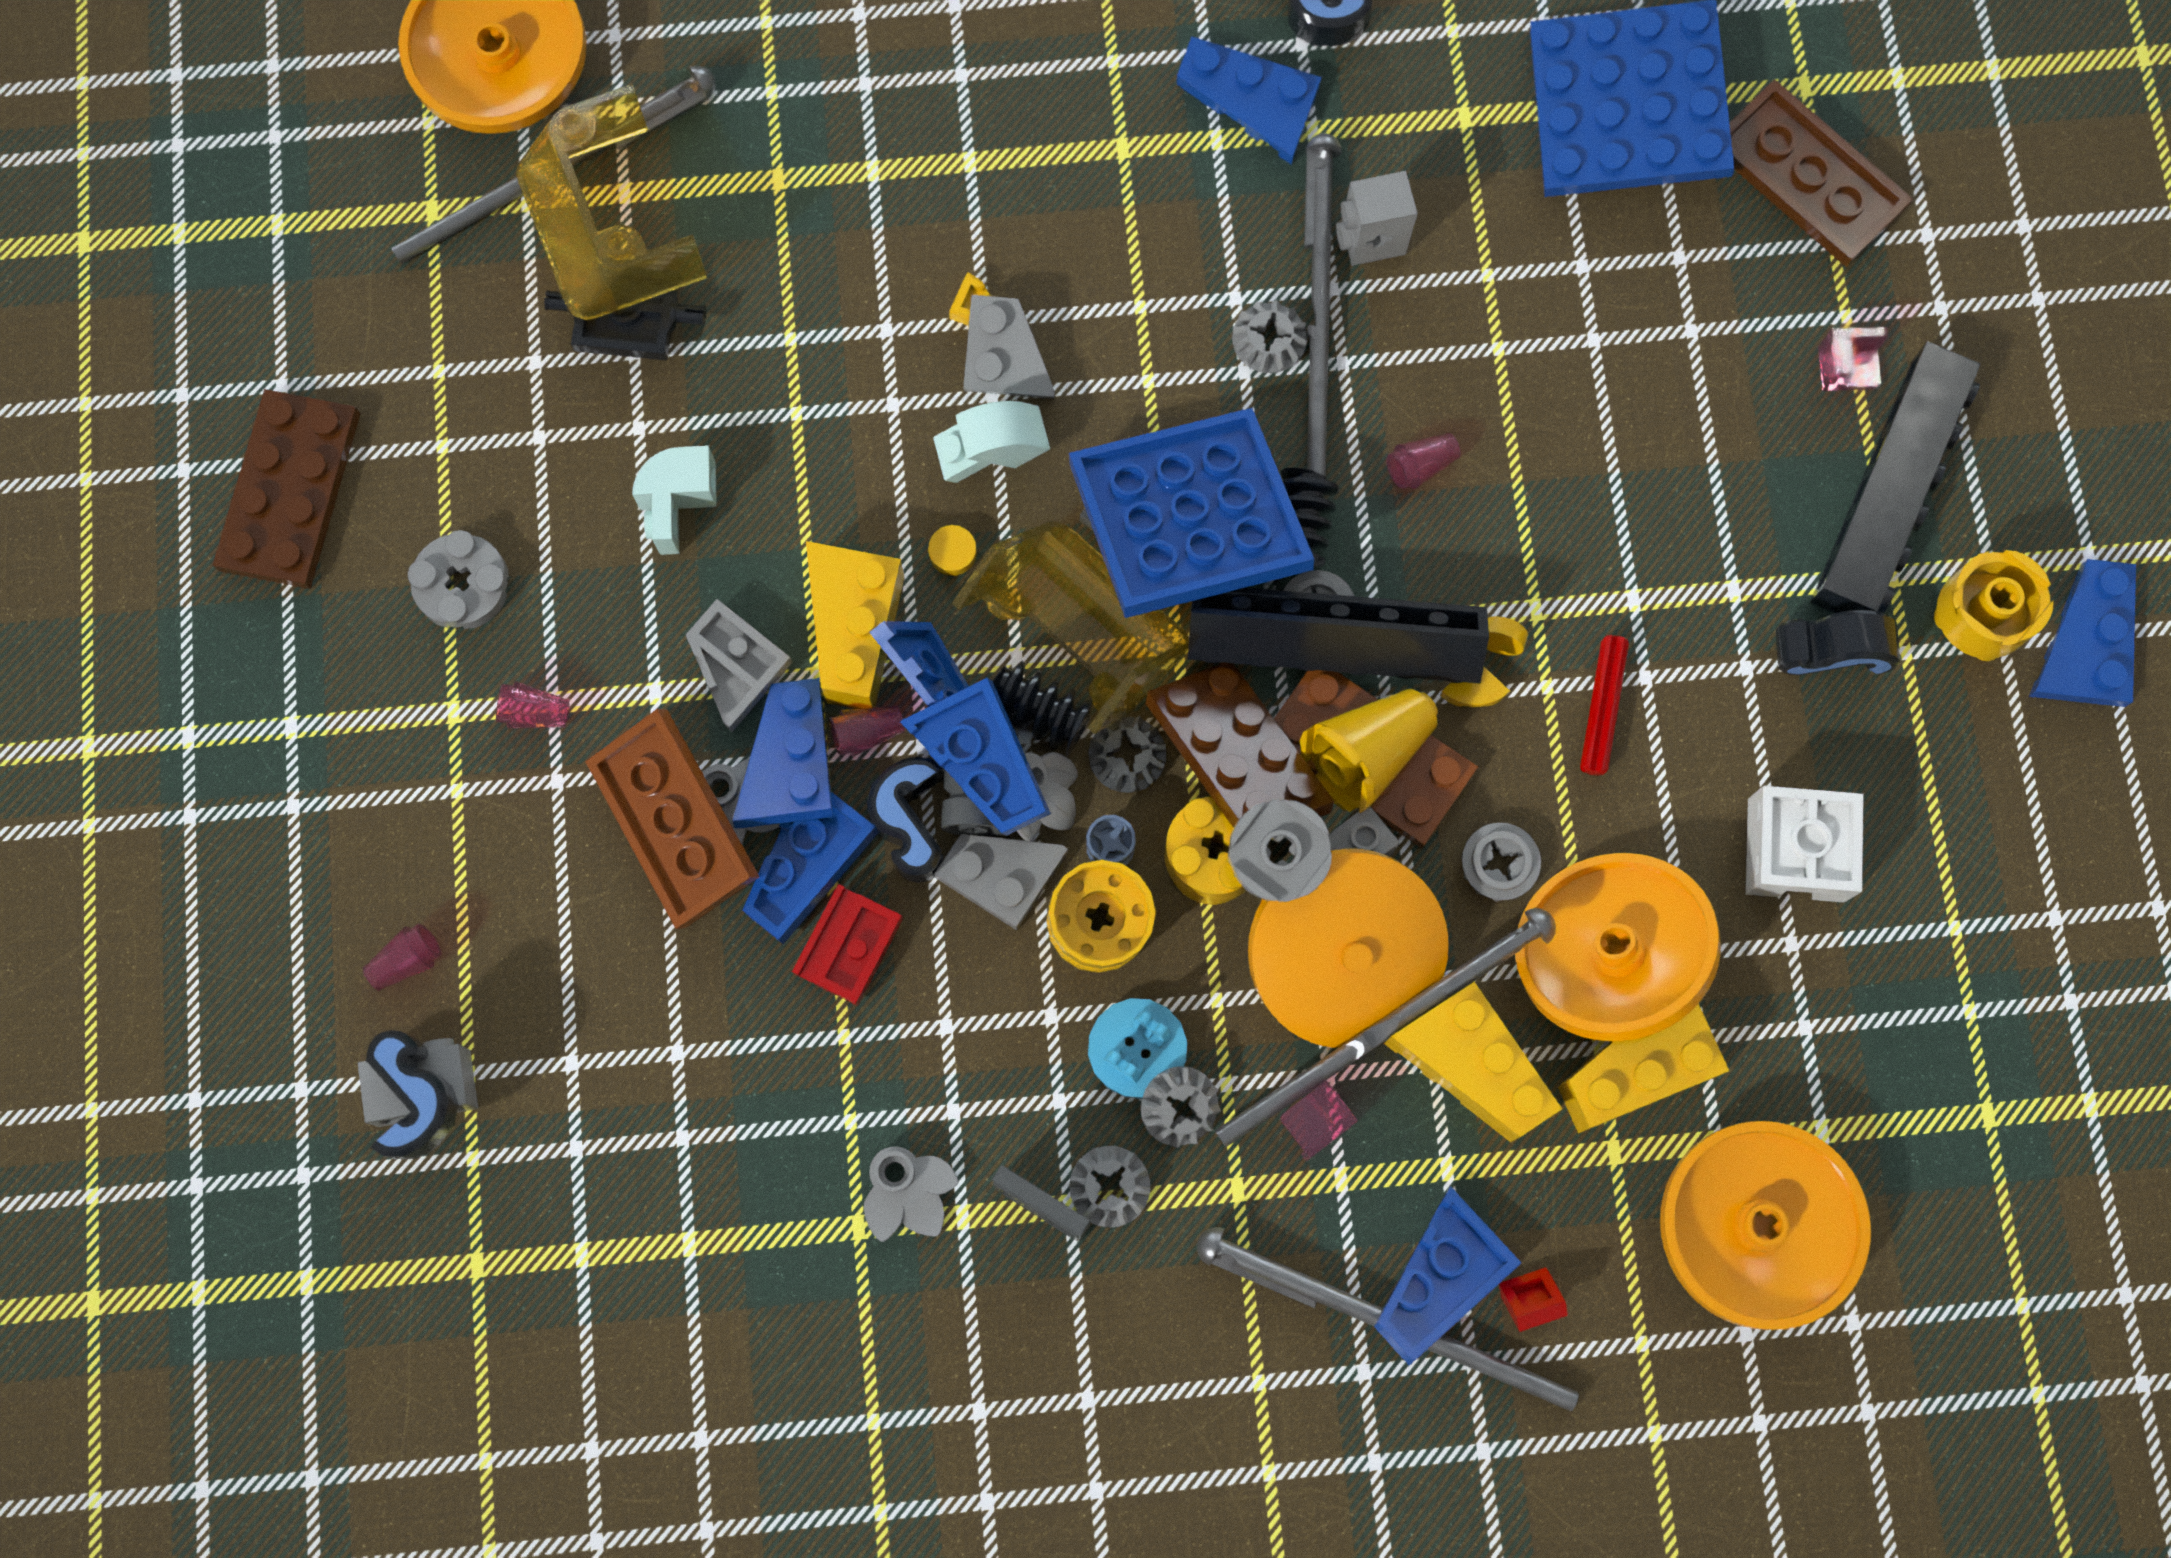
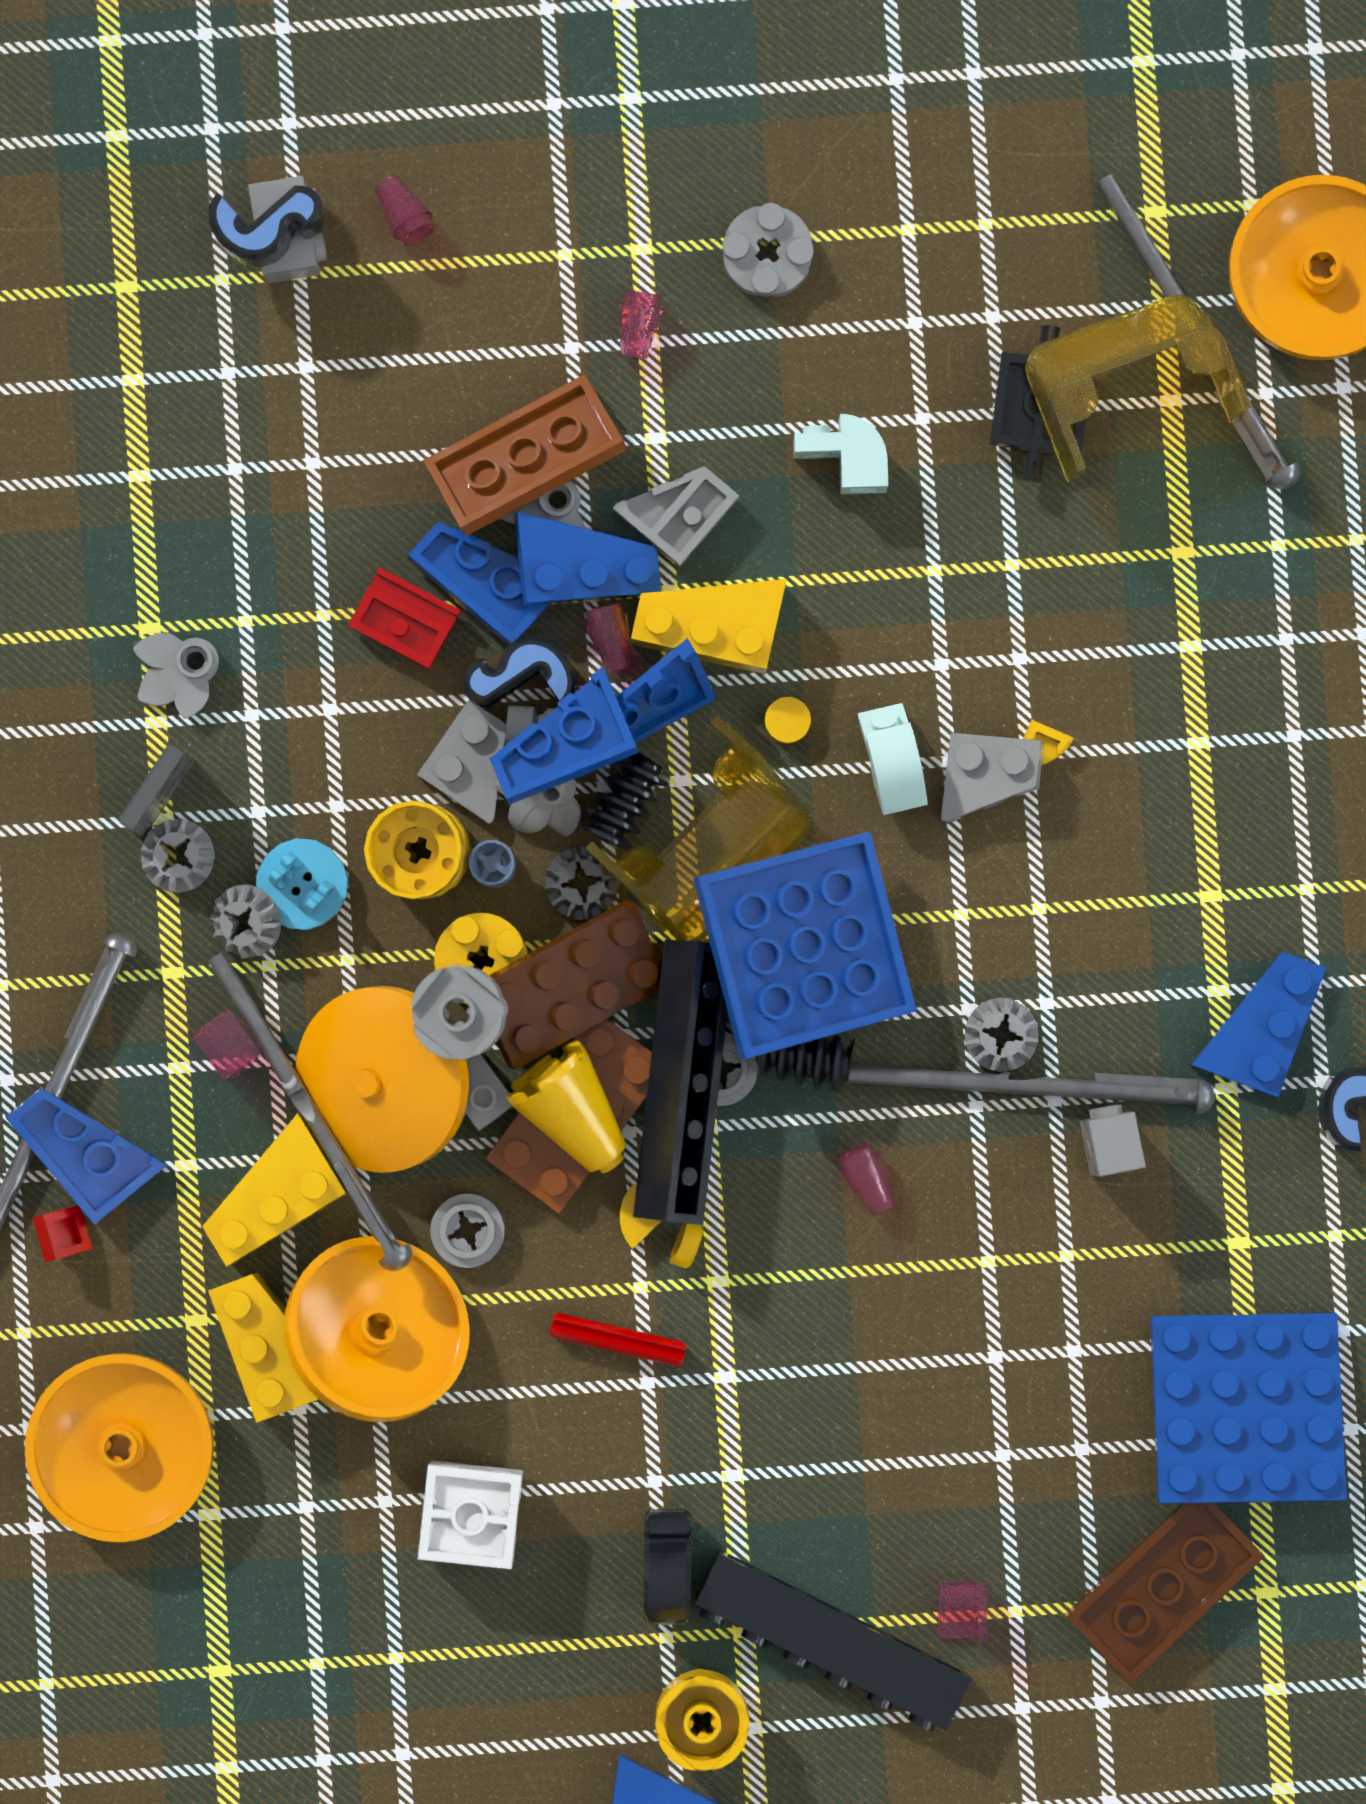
camera: 90 degrees right, 10 degrees up
(287, 489) = (865, 84): reddish brown plate -> none

